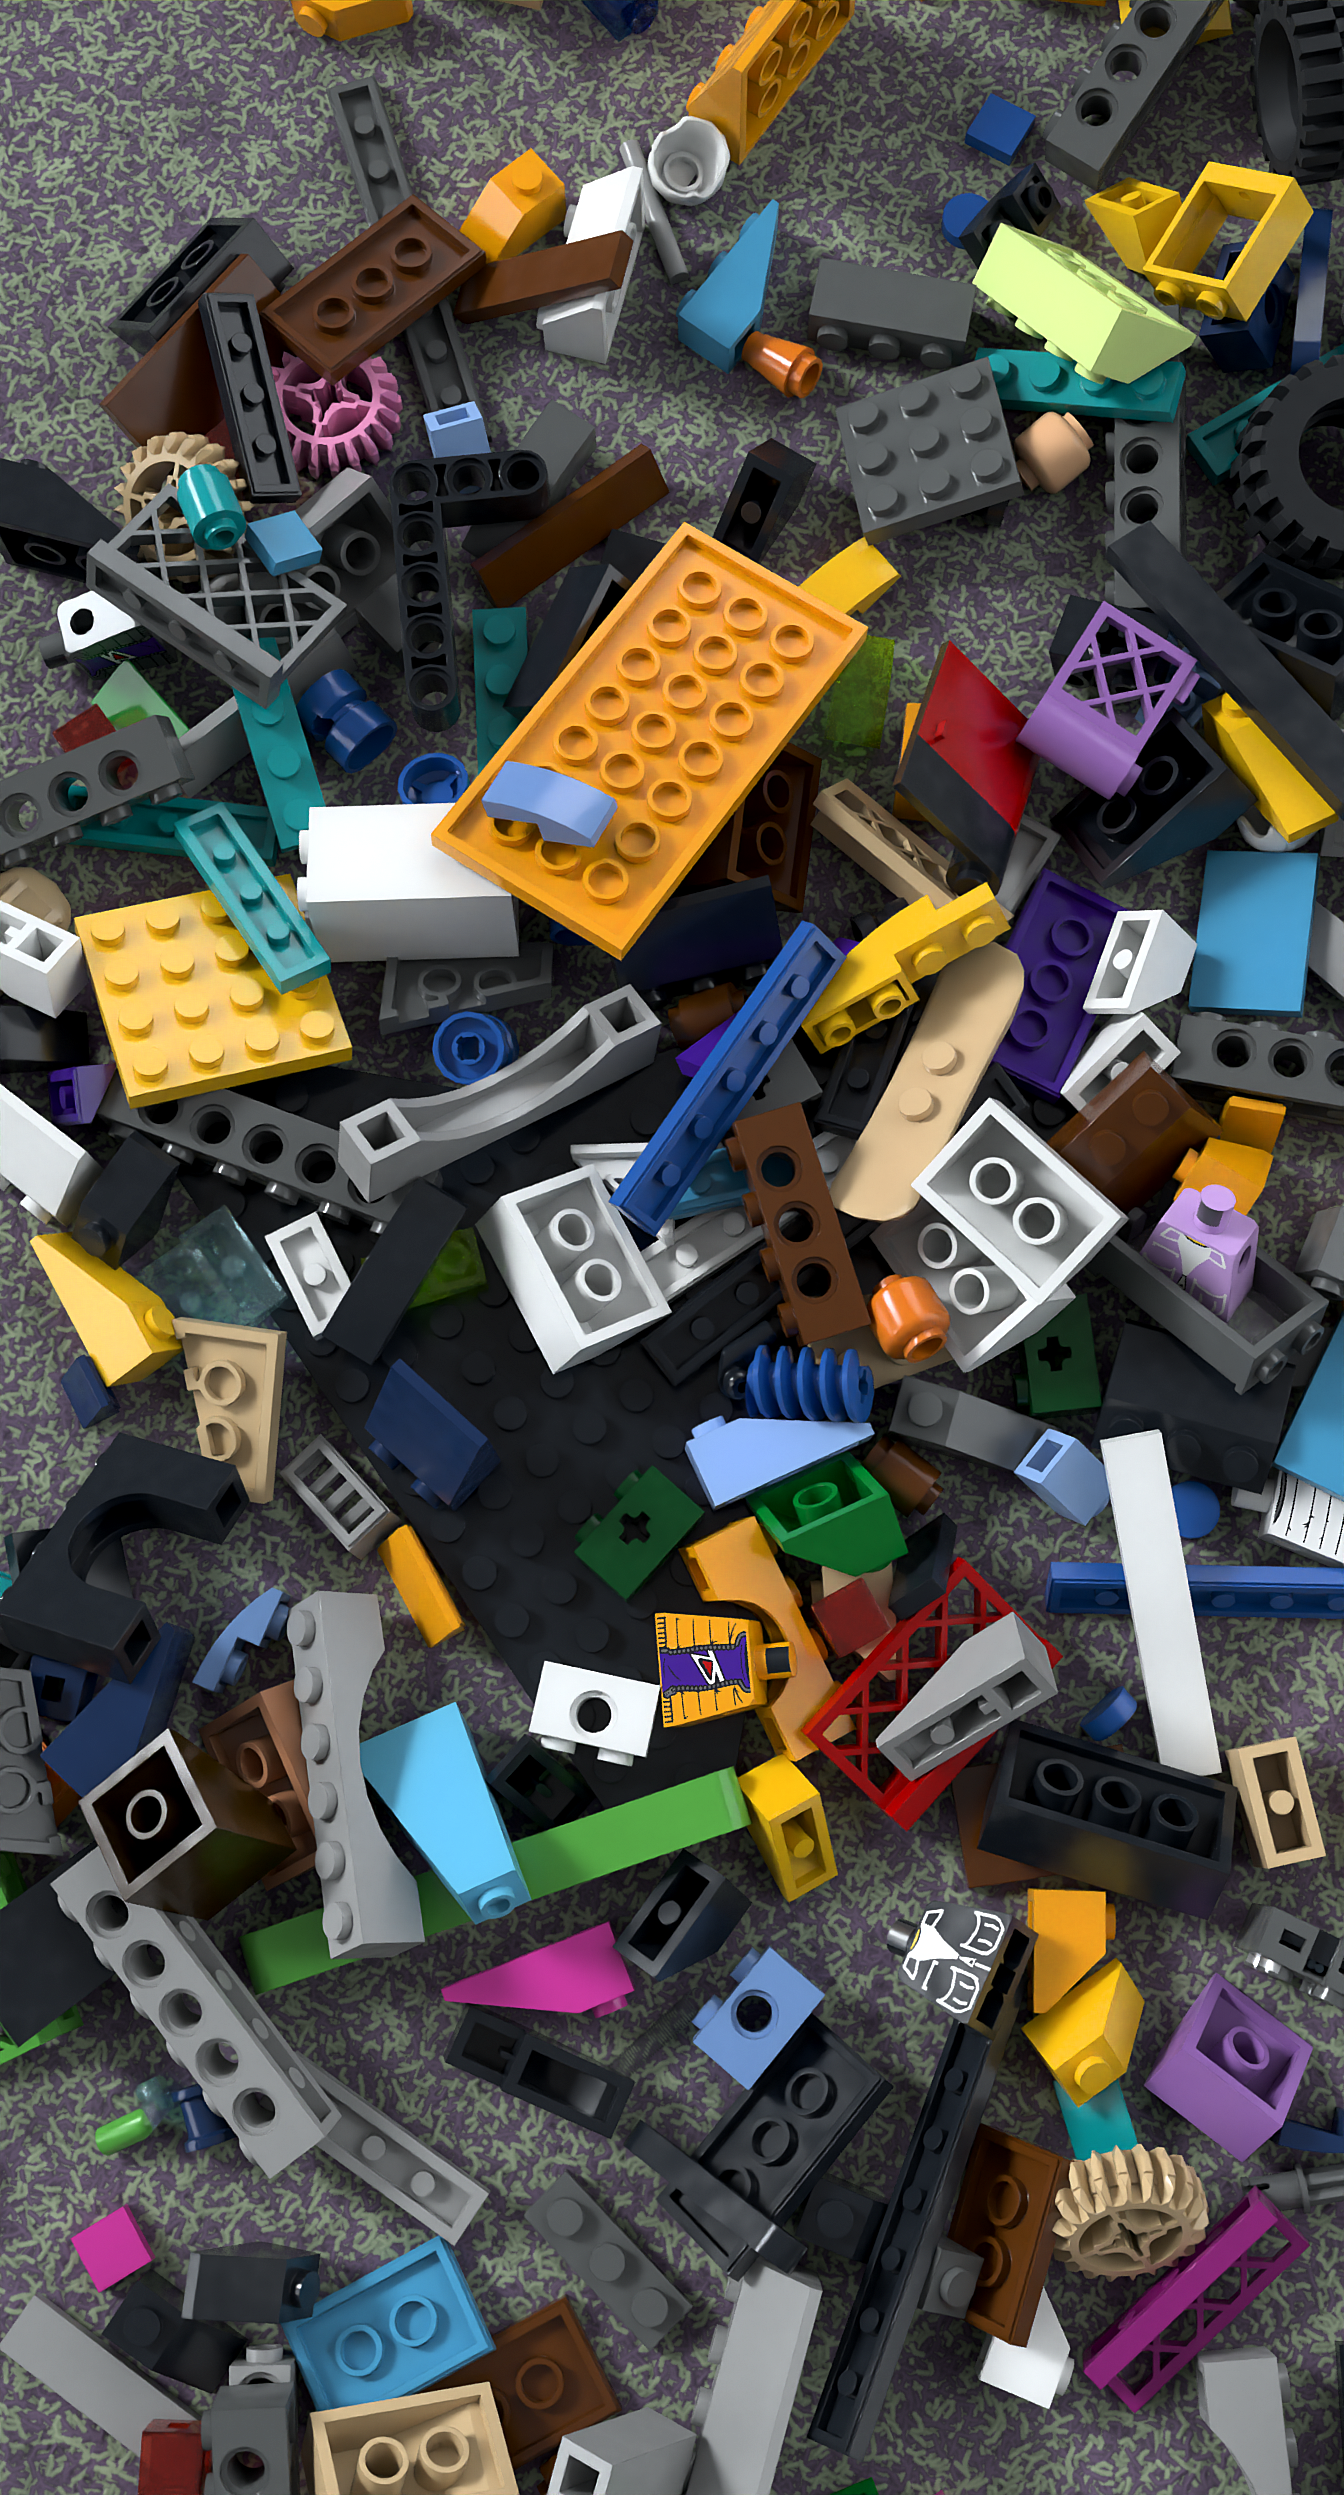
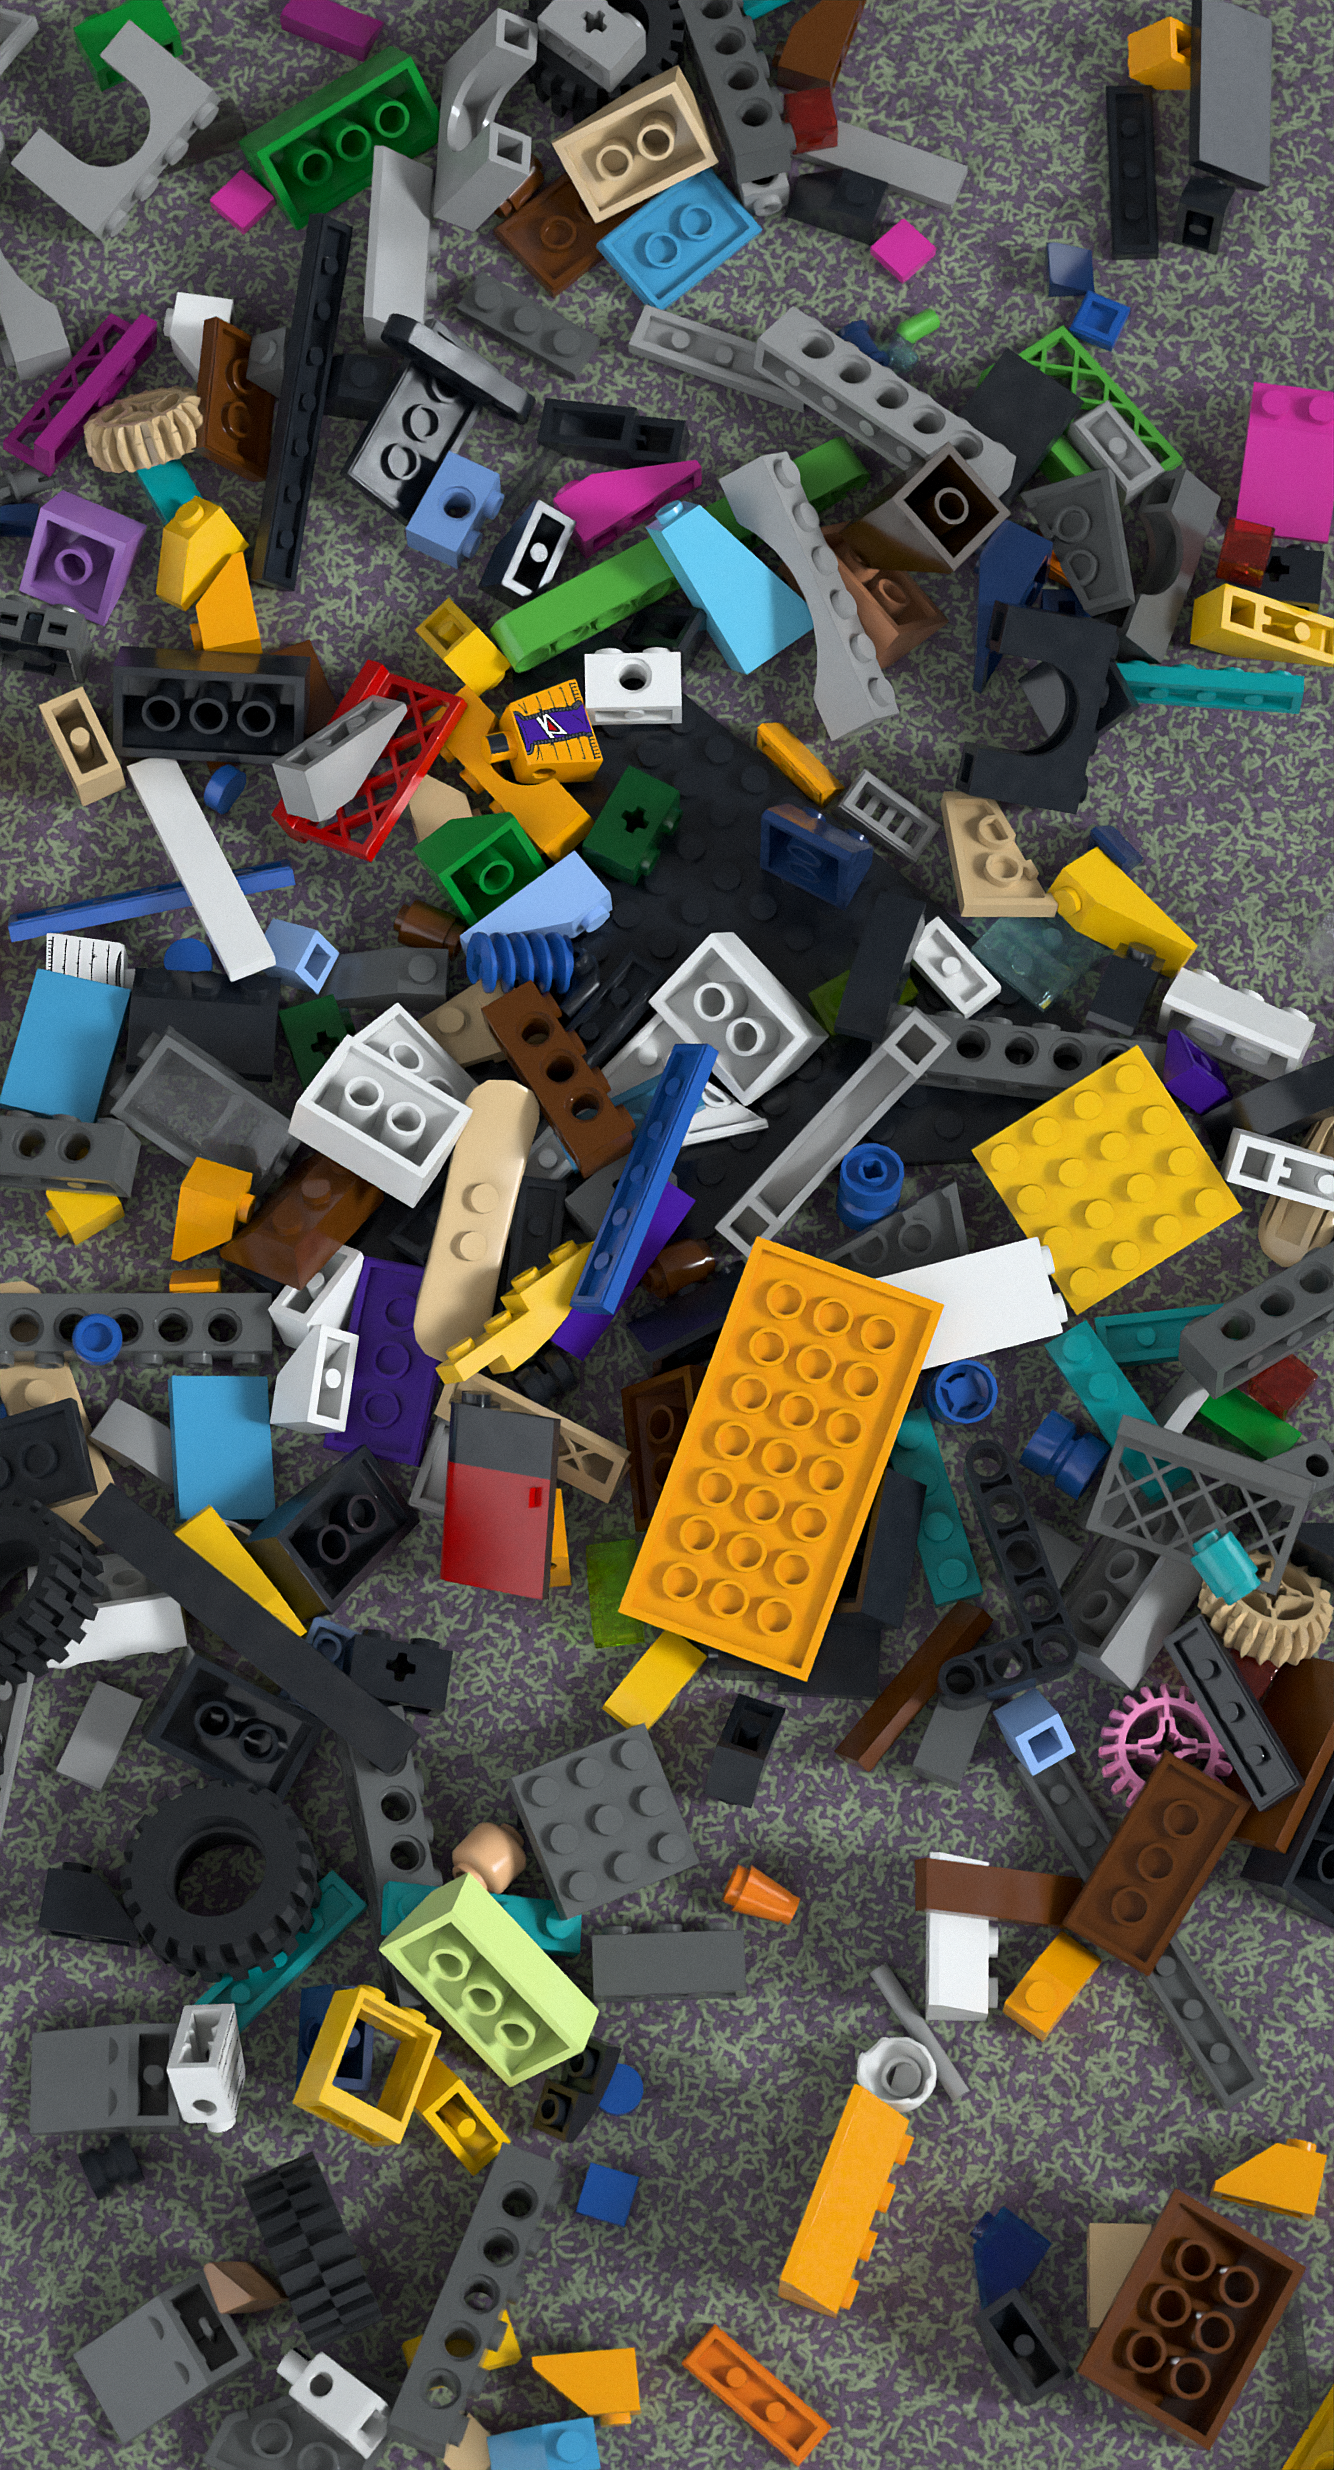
camera: 165 degrees right, 5 degrees down
(251, 2284) = (786, 241): black slope -> none
(252, 898) = (1095, 1259): teal plate -> none
(258, 1624) = (928, 693): medium blue slope -> none
(283, 543) = (1155, 1563): dark azure tile -> none
(560, 805) = (848, 1343): medium blue slope -> none
(733, 297) = (819, 1940): dark azure slope -> none
(849, 1618) = (447, 790): clear red piece -> none
(908, 1318) = (452, 1028): orange head -> none
(925, 1570) = (395, 860): black tile -> none
(964, 1961) = (304, 572): black torso -> none
(1093, 744) = (397, 1555): medium lavender piece -> none
(1206, 1248) = (222, 1131): lavender torso -> none
(1312, 289) = (277, 2065): dark blue beam -> none

